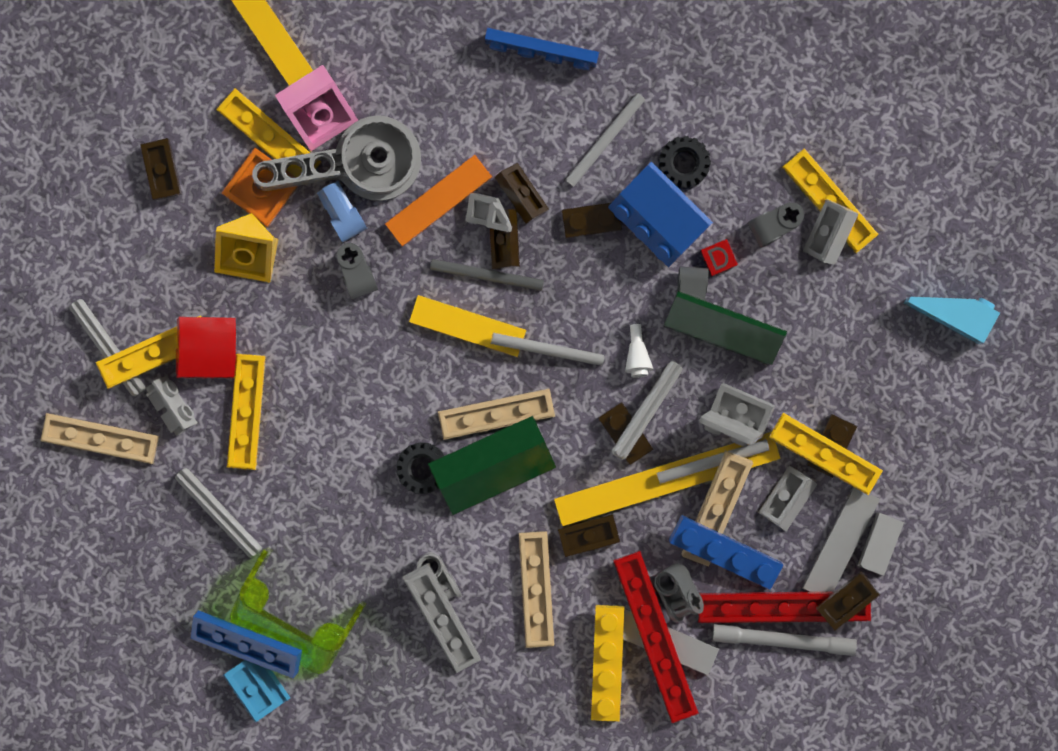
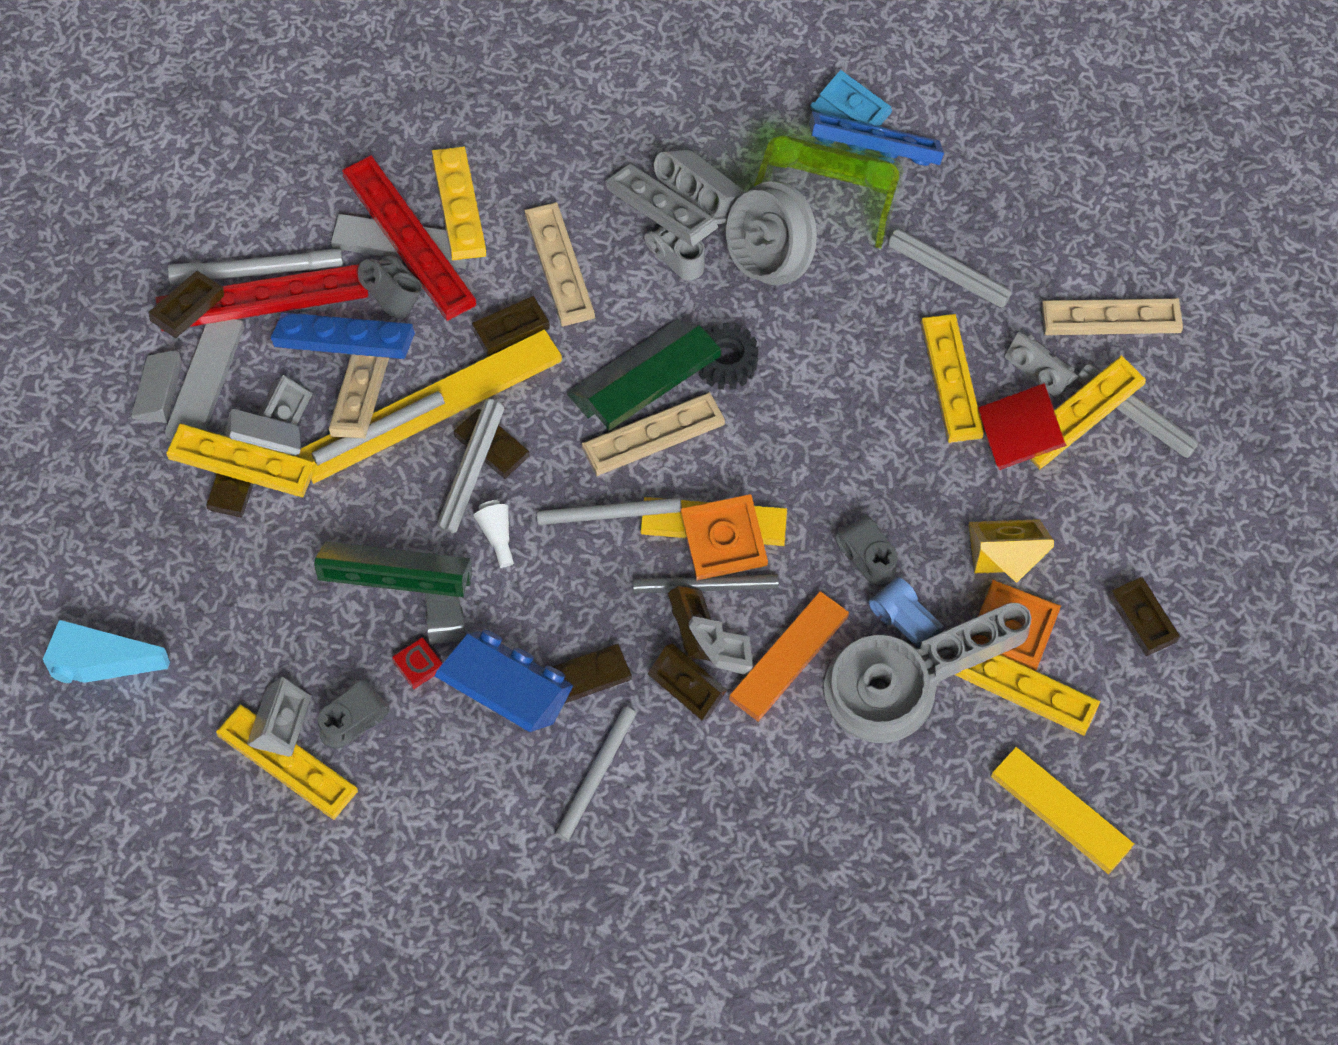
camera: 165 degrees right, 25 degrees down
(316, 108) = (977, 727): bright pink slope -> none
(364, 572) = (752, 217): none -> light grey beam
(465, 302) = (724, 537): none -> orange plate
(530, 46) = (692, 863): blue plate -> none
(697, 150) = (480, 743): black tyre -> none
(738, 415) = (359, 472): light grey bracket -> none
(804, 471) = (263, 432): none -> light grey slope

